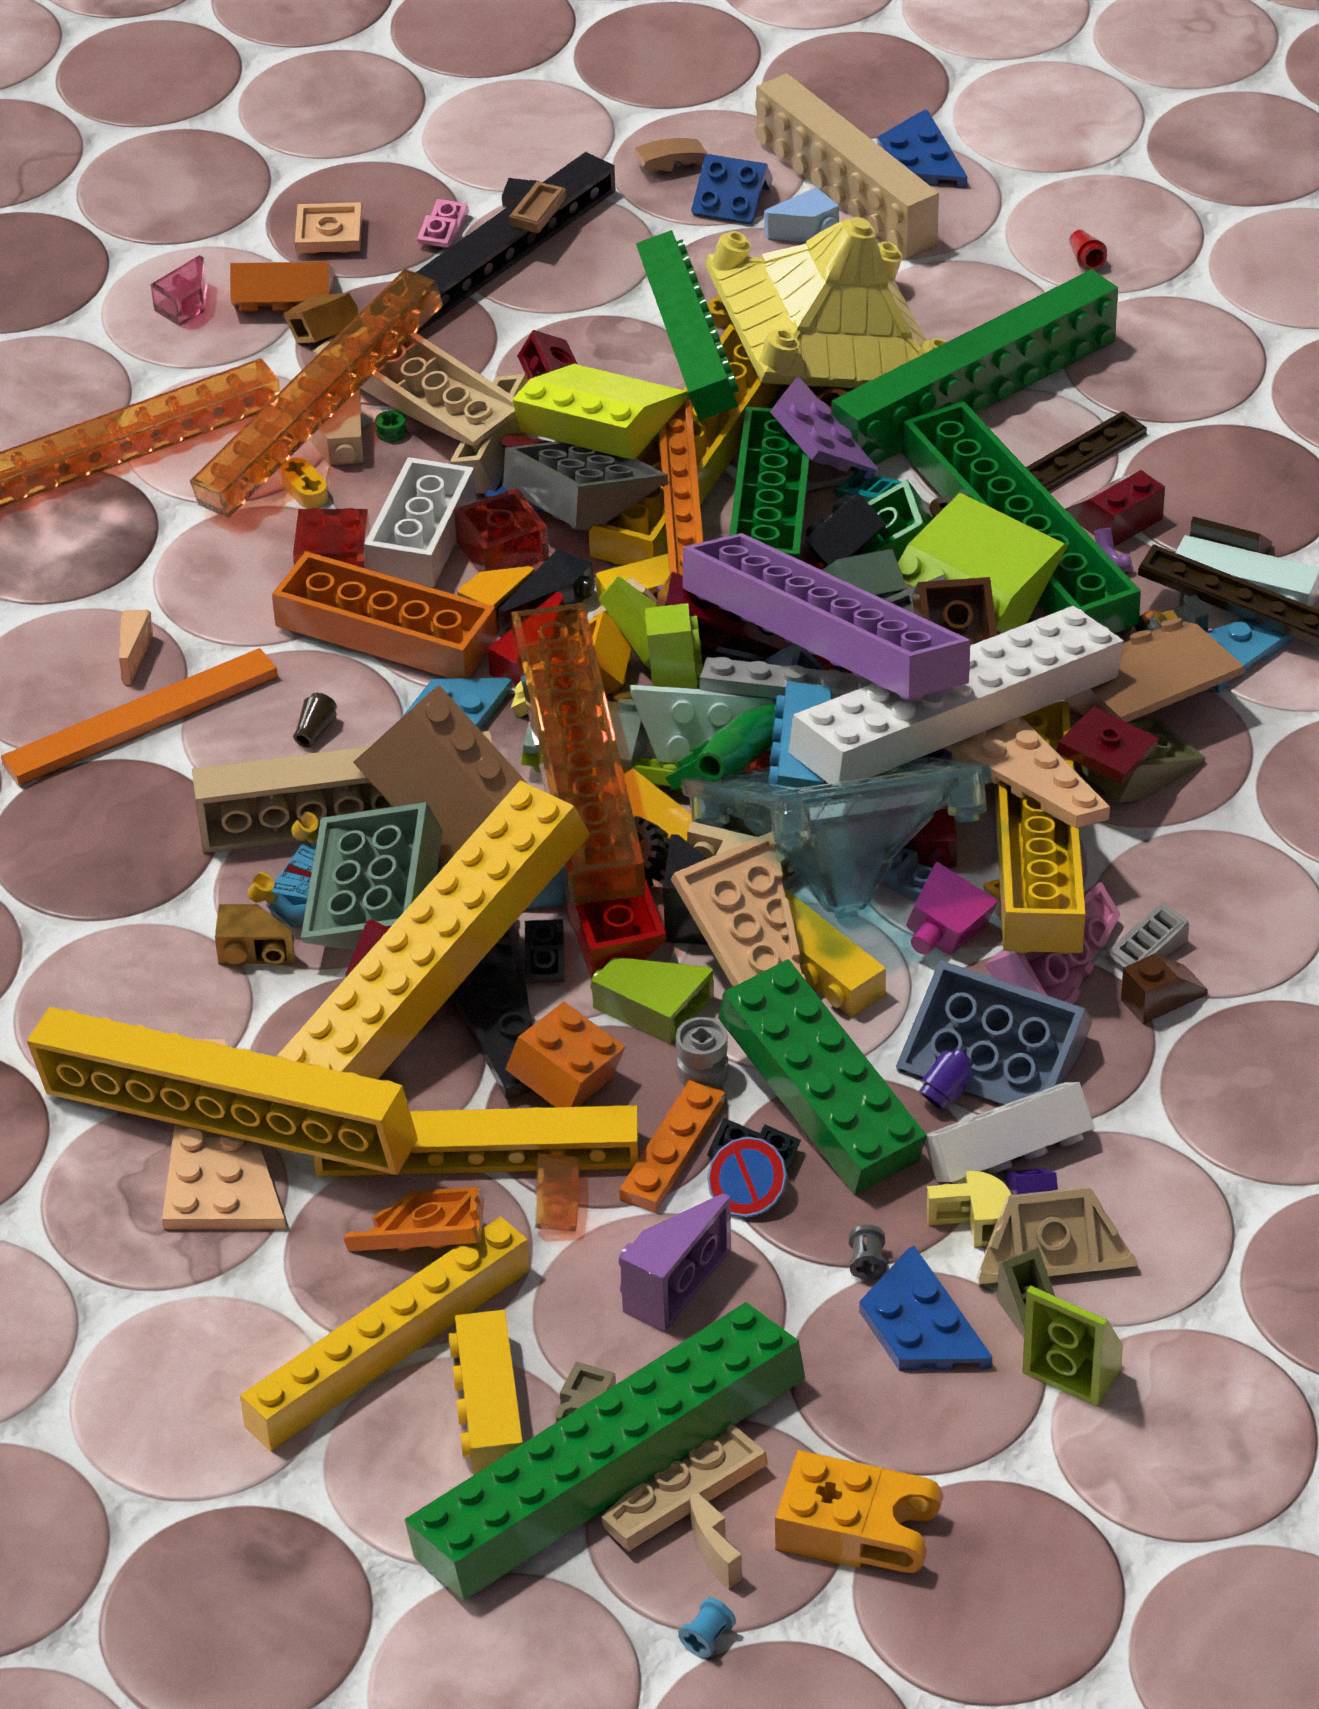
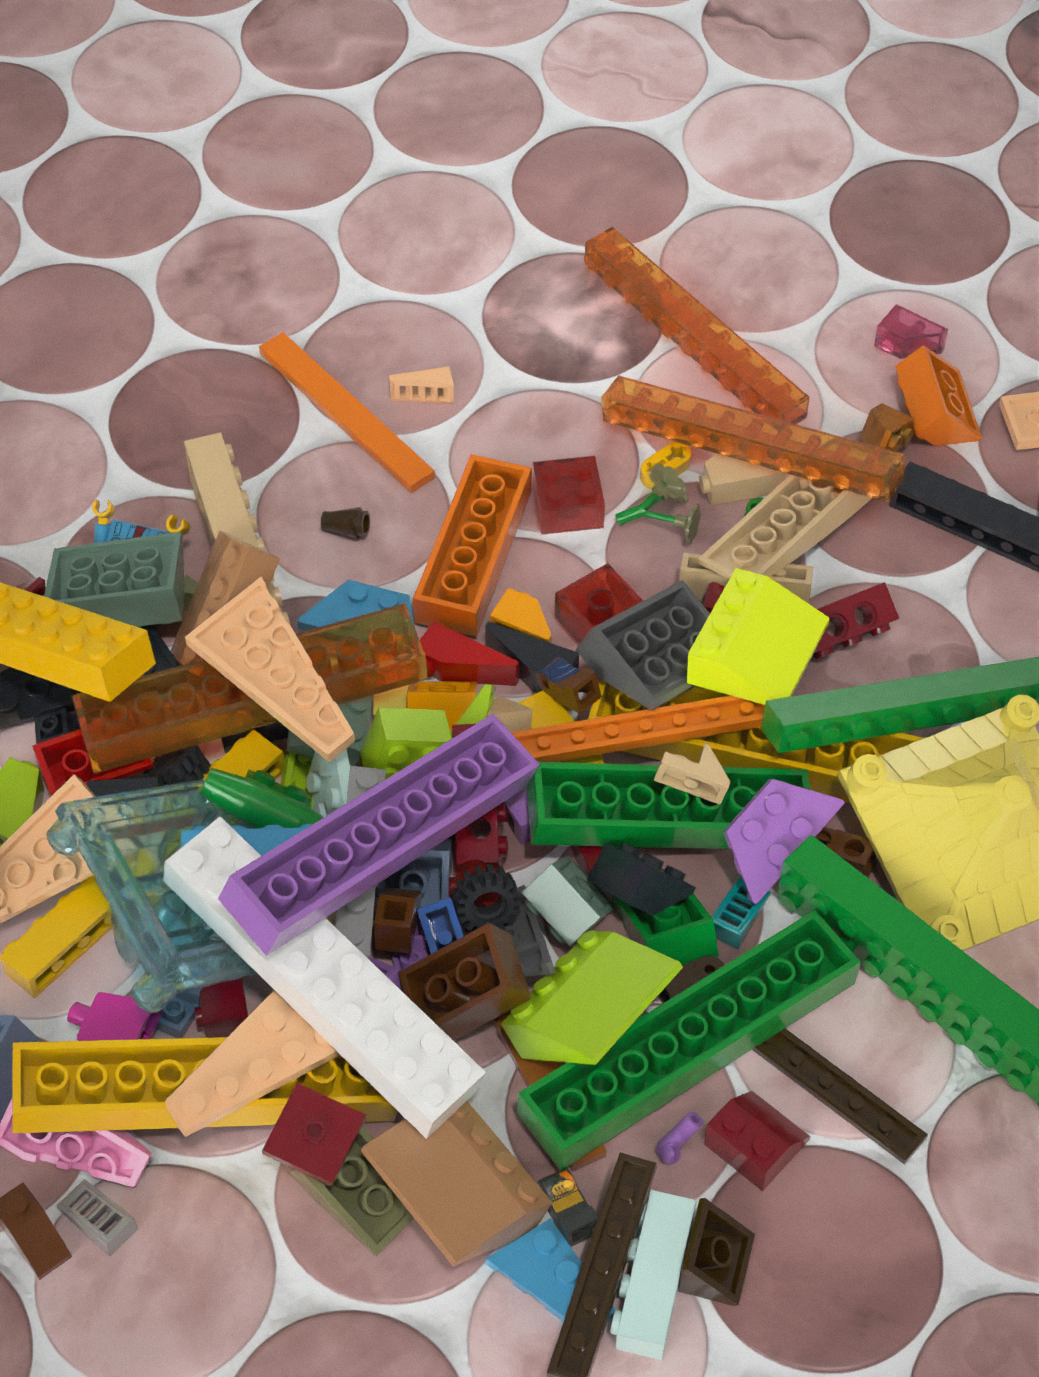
camera: 80 degrees right, 10 degrees up
(252, 936) = (74, 519): pearl gold slope -> none
(350, 468) = (666, 486): none -> olive plant
(418, 521) = (585, 540): white brick -> none
(578, 706) = (266, 661): none -> light nougat wing
(610, 544) = (565, 682): none -> reddish brown leg
(757, 450) = (700, 779): none -> tan slope

